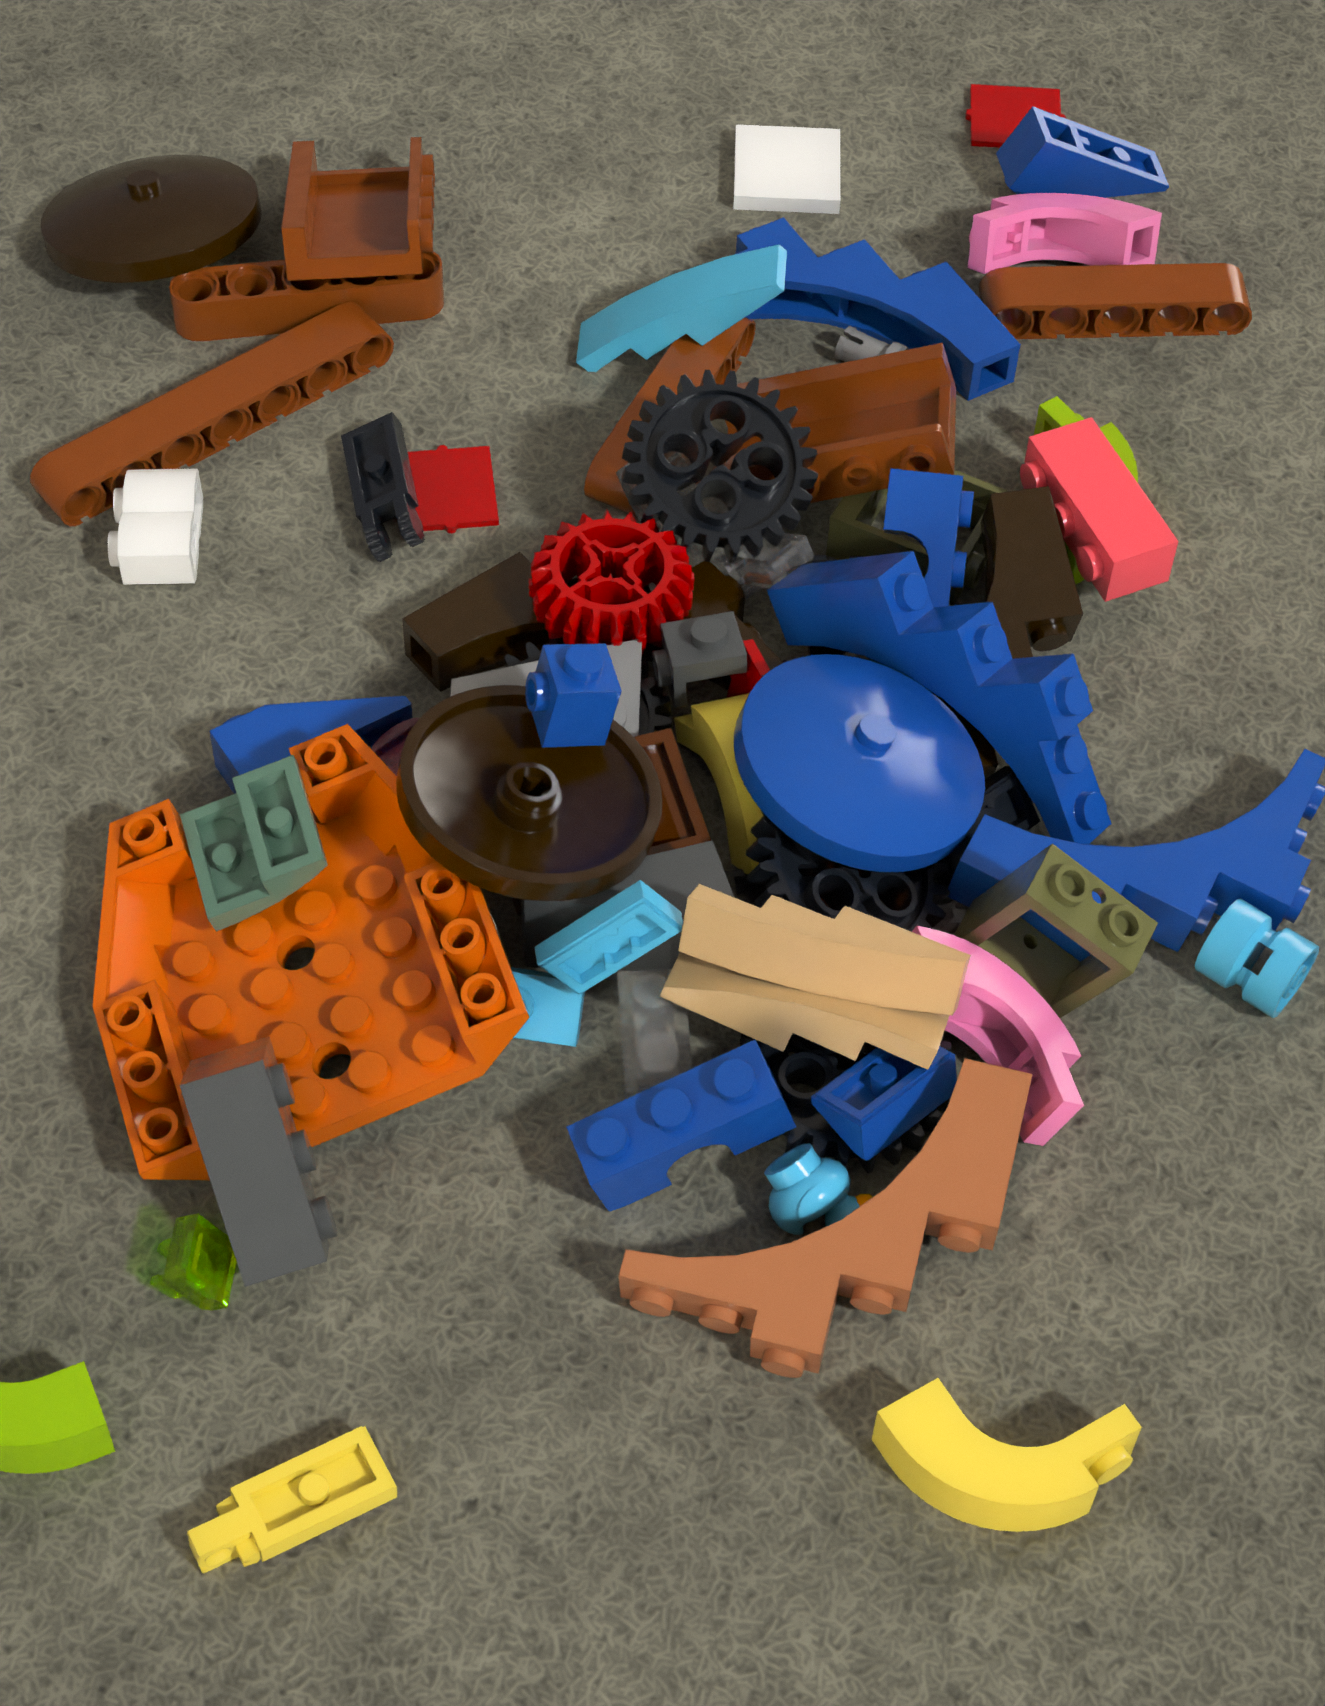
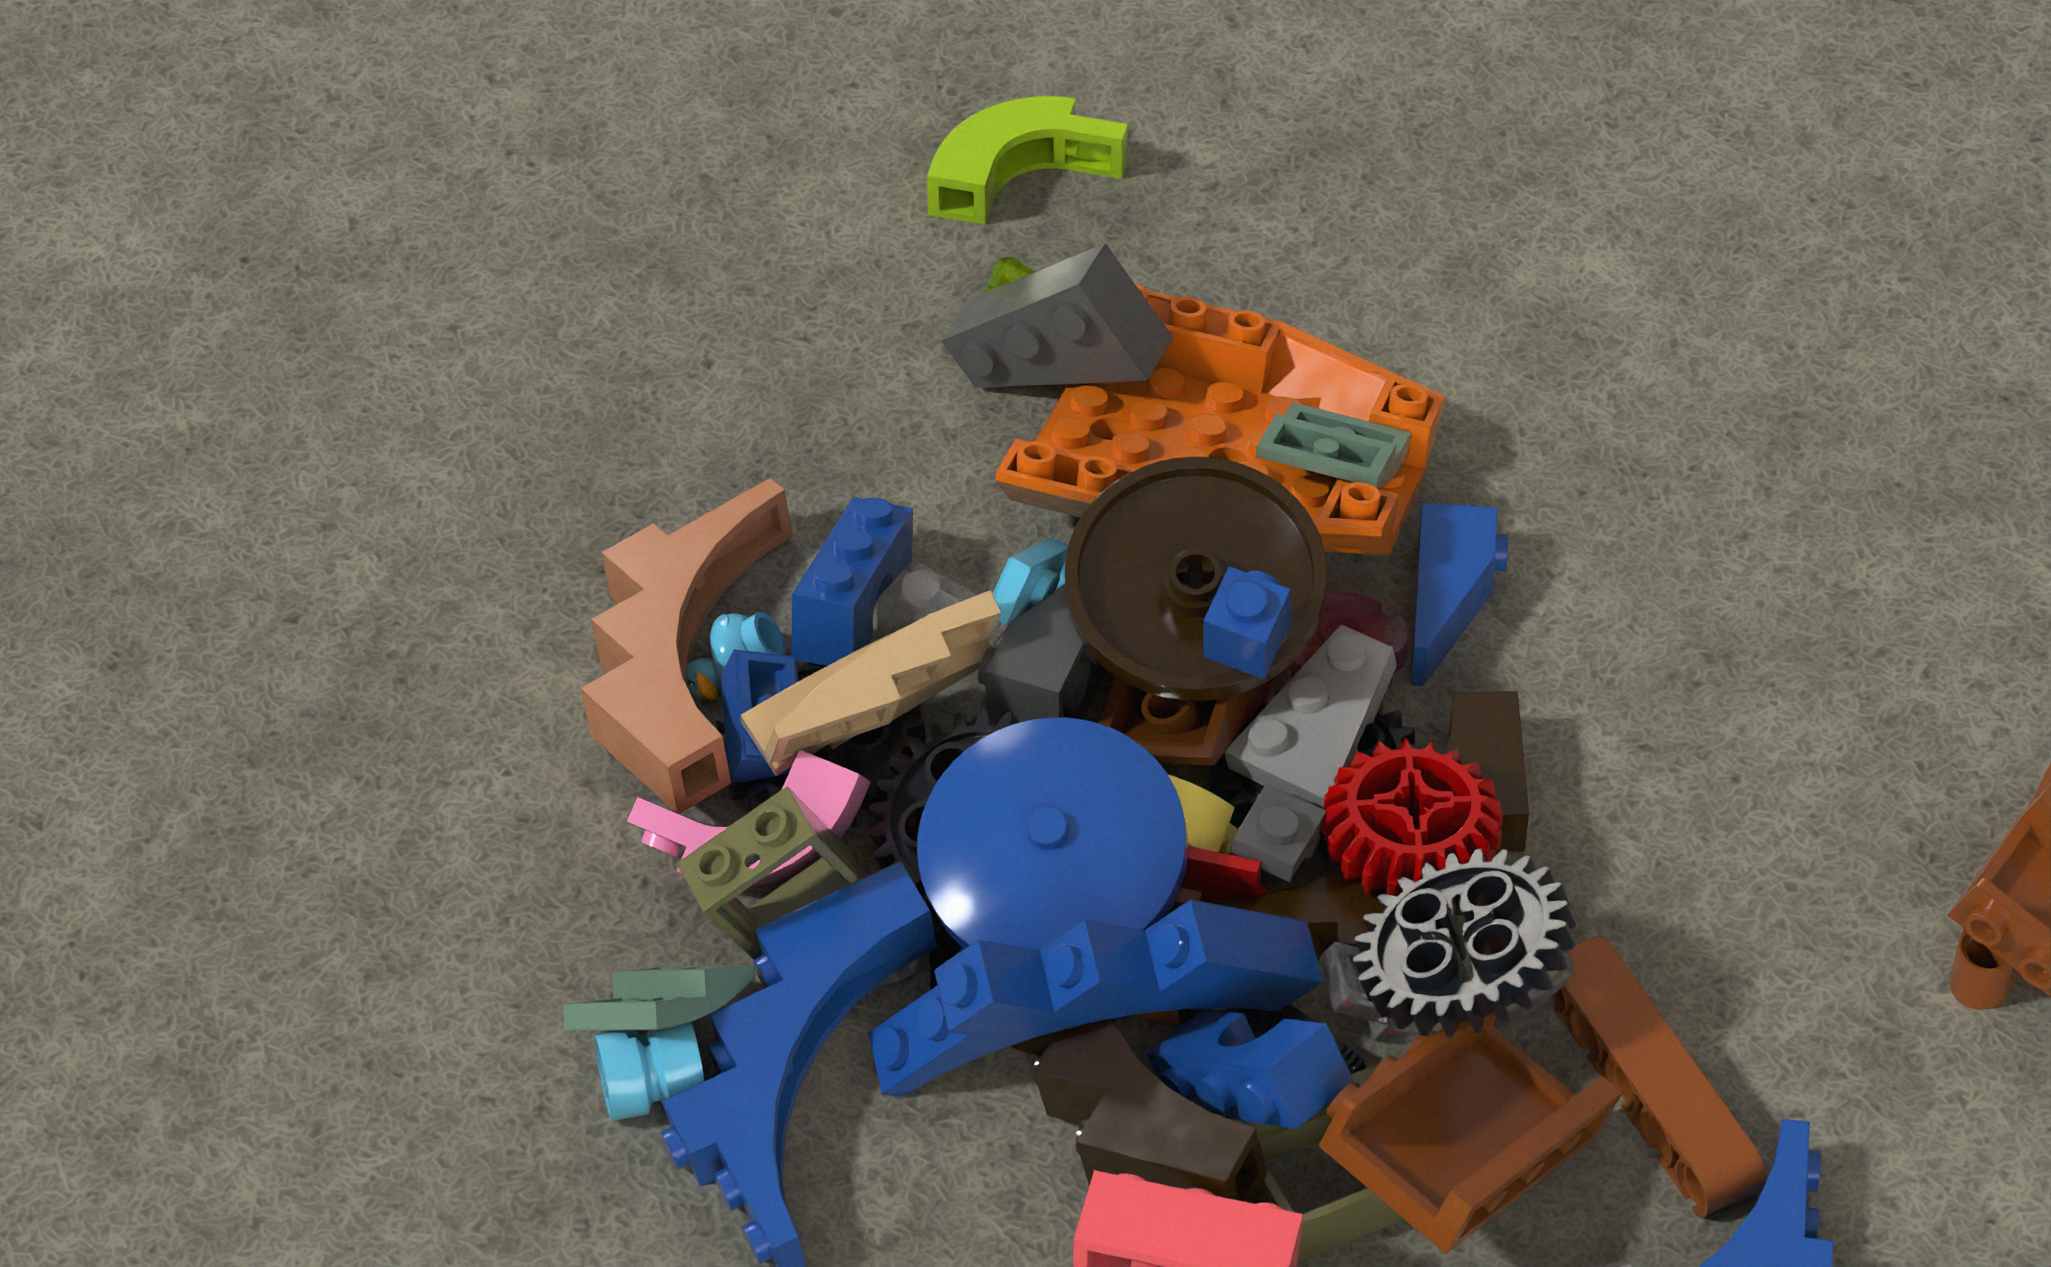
camera: 130 degrees right, 5 degrees down
(157, 526) = (1791, 616): white brick -> none
(212, 410) = (1921, 729): dark orange beam -> none
(295, 1502) = (791, 268): light yellow hinge -> none
(382, 483) = (1718, 796): black hinge -> none
(454, 488) = (1693, 862): red piece -> none
(690, 302) = (1739, 1100): medium azure slope -> none
(995, 1482) = (434, 607): light yellow arch -> none
(1211, 977) = (659, 997): none -> sand green slope

